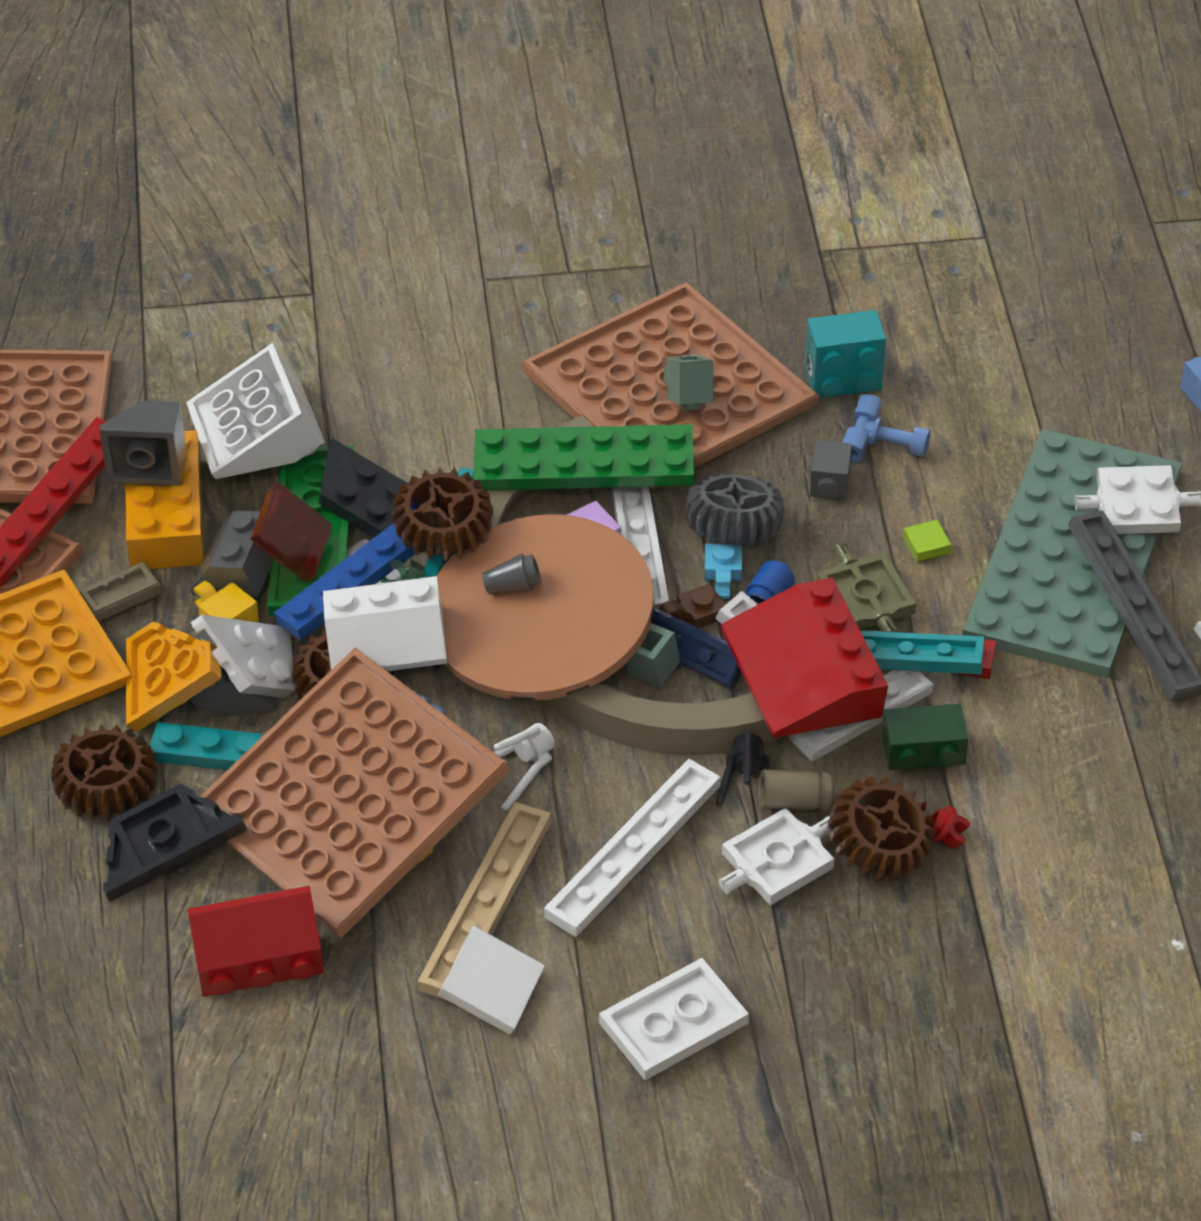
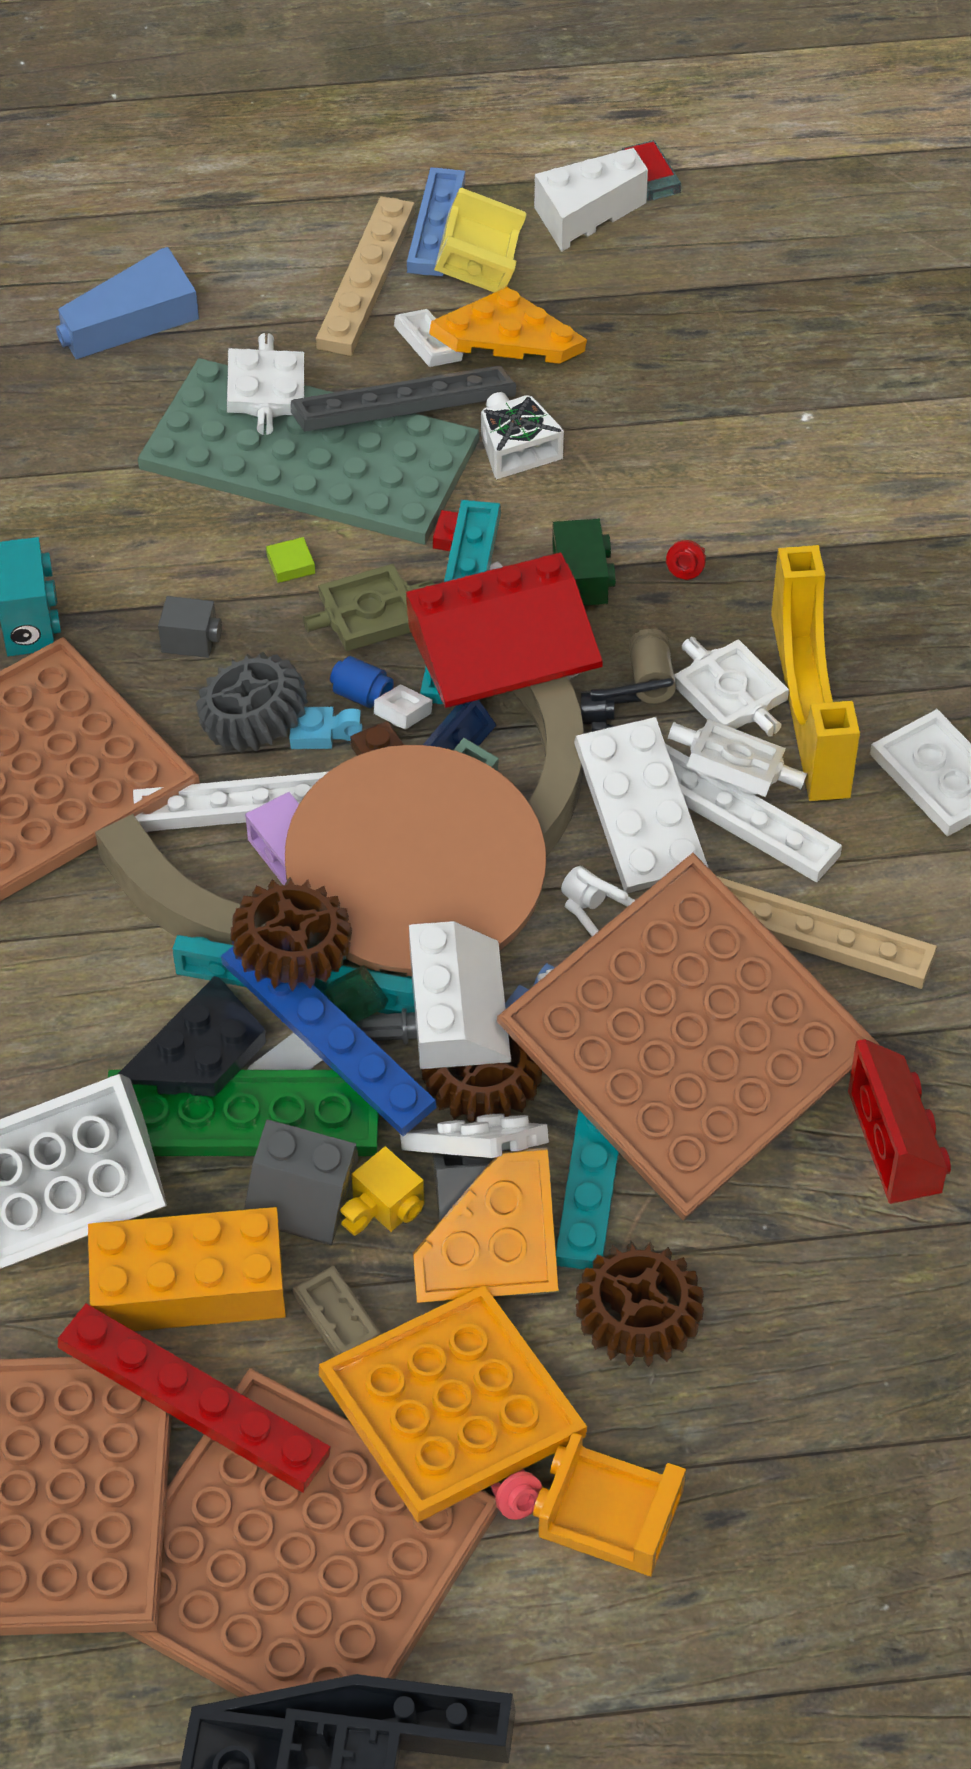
camera: 90 degrees left, 5 degrees up
(145, 444) = (161, 1233): dark grey slope -> none
(163, 836) = (738, 1233): black wing -> none
(291, 532) = (286, 1103): clear red tile -> none
(491, 980) = (915, 916): white tile -> none
(513, 575) = (388, 868): dark grey cone -> none
(584, 457) = (175, 826): green plate -> none
(619, 775) = (638, 801): none -> white plate
(677, 847) = (736, 758): none -> white plate
(689, 380) = (58, 723): sand green brick -> none
(846, 900) = (823, 729): none -> yellow arch
(869, 430) = (127, 592): medium blue bar -> none
(881, 818) = (705, 597): reddish brown gear -> none
(1103, 694) = (519, 434): none -> white torso

